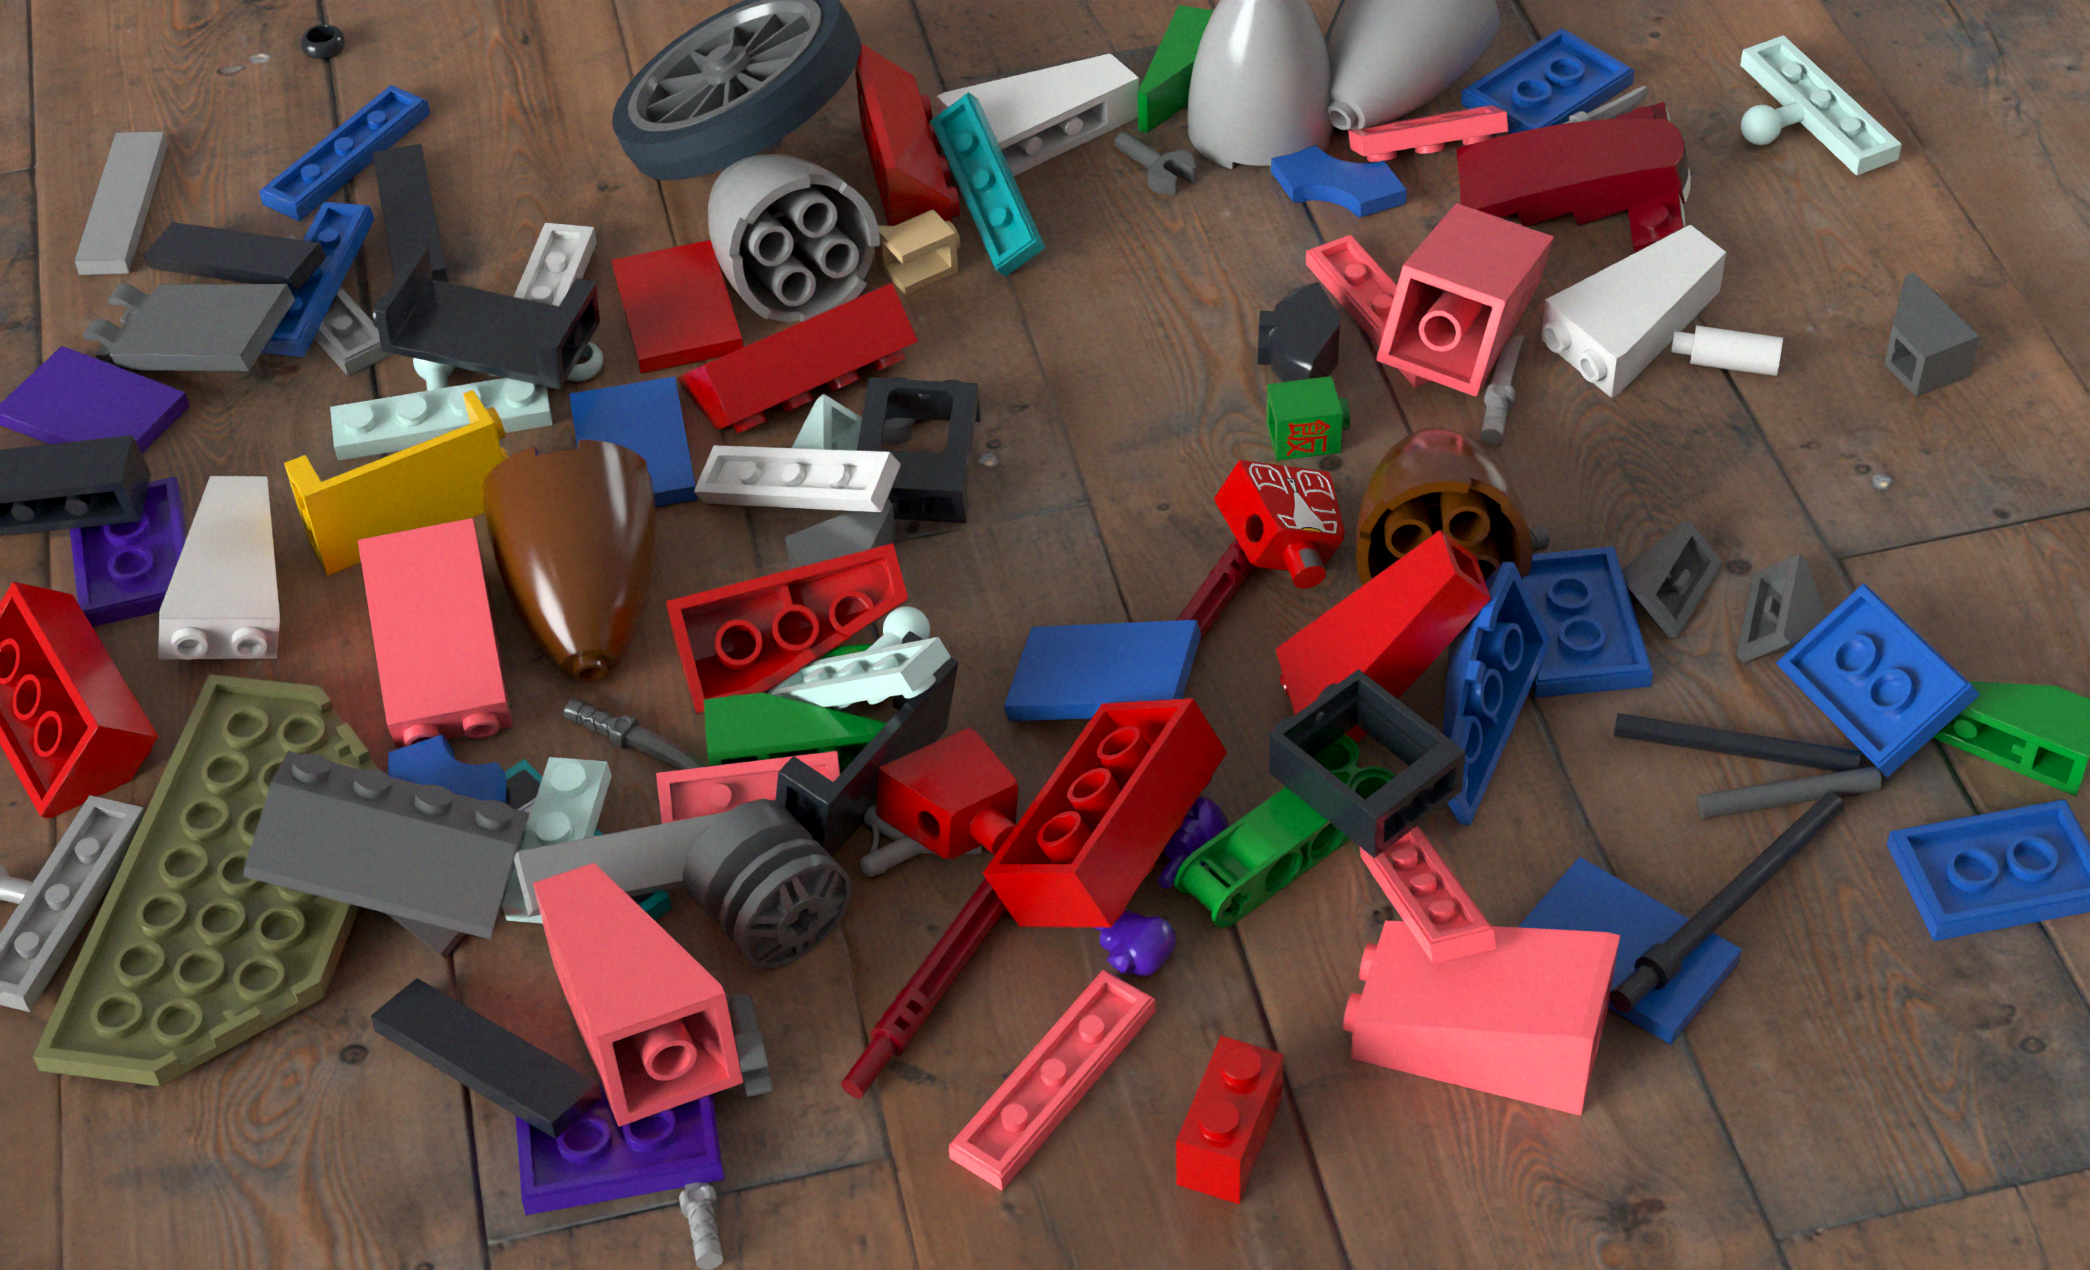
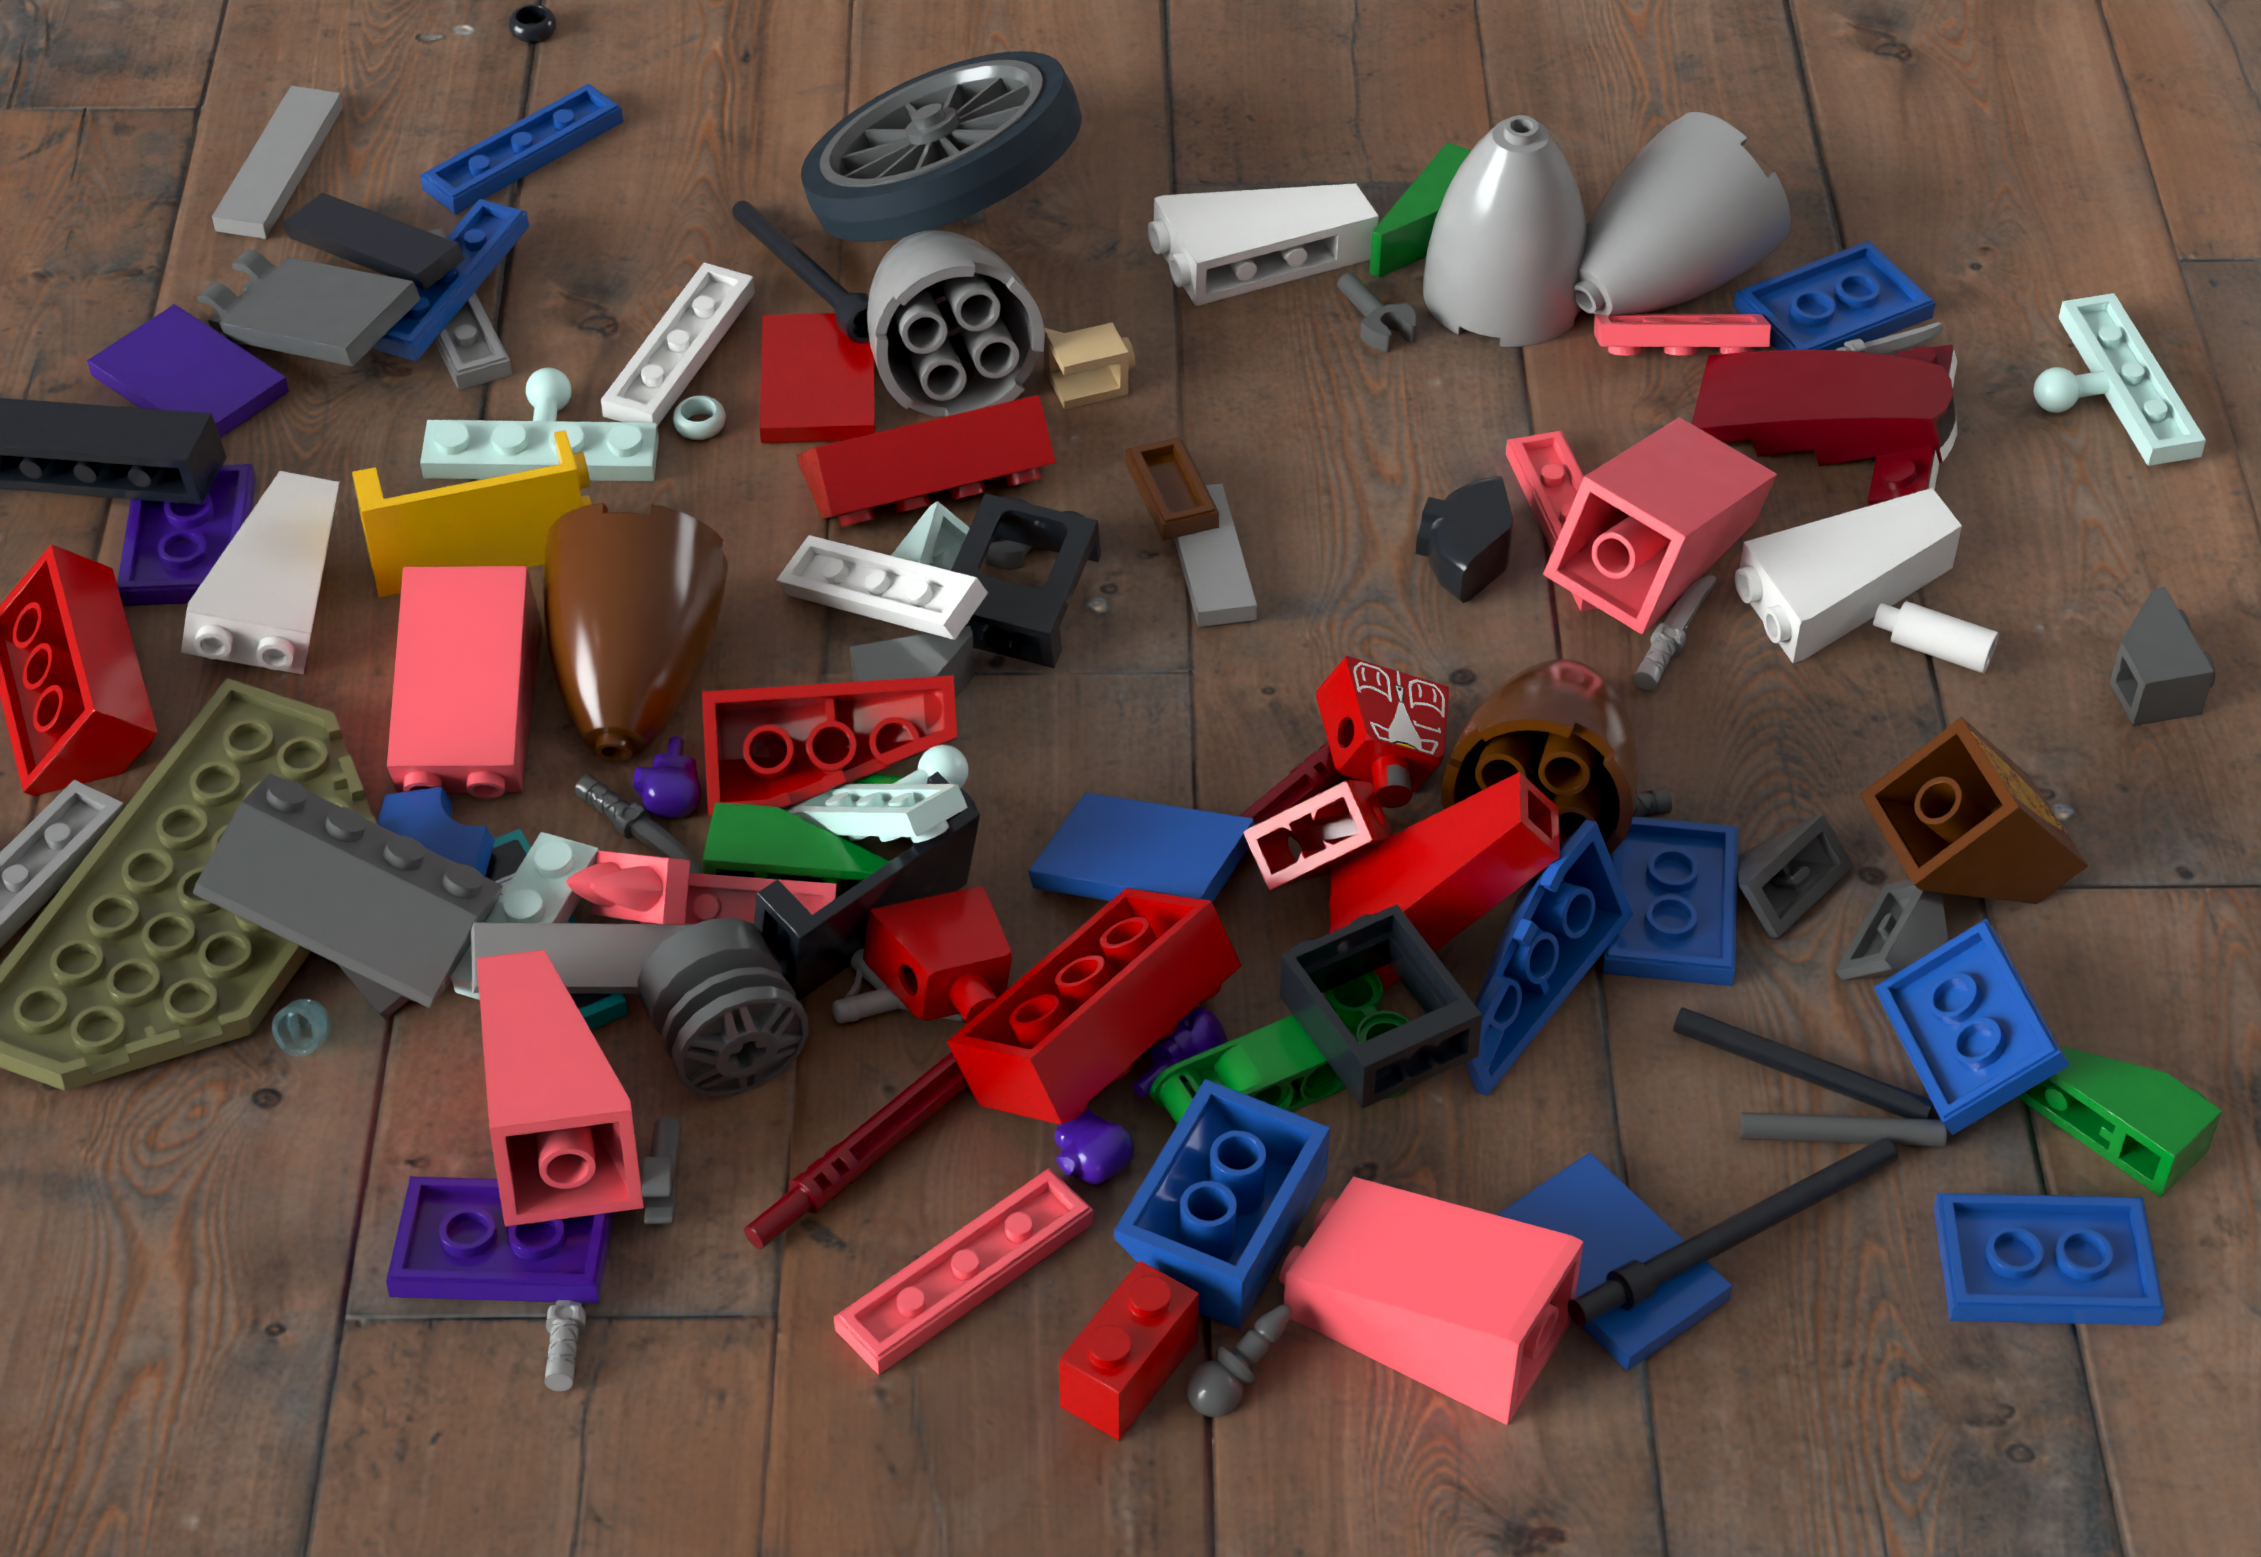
camera: 10 degrees right, 0 degrees up
(360, 981) = (293, 1023): none -> clear light blue hinge
(408, 207) = (568, 231): black tile -> none
(485, 328) = (605, 364): black panel -> none
(486, 1058) = (393, 1129): black tile -> none
(647, 421) = (745, 503): blue tile -> none
(651, 692) = (671, 784): none -> dark purple piece
(654, 790) = (635, 887): none -> coral tile
(692, 240) = (849, 307): none -> black piece
(902, 142) = (1105, 241): red slope -> none
(987, 184) = (1180, 305): teal tile -> none
(1027, 345) = (1172, 488): none -> reddish brown tile
(1077, 398) = (1217, 570): none -> light grey tile
(1260, 621) = (1325, 827): none -> red torso
(1277, 962) = (1226, 1198): none -> blue slope
(1306, 418) = (1447, 623): green brick -> none
(1315, 1134) = (1217, 1385): none -> dark grey bar
(1356, 186) = (1584, 377): blue tile -> none
(1430, 899) = (1405, 1162): coral tile -> none
(1819, 502) = (1972, 822): none -> reddish brown slope

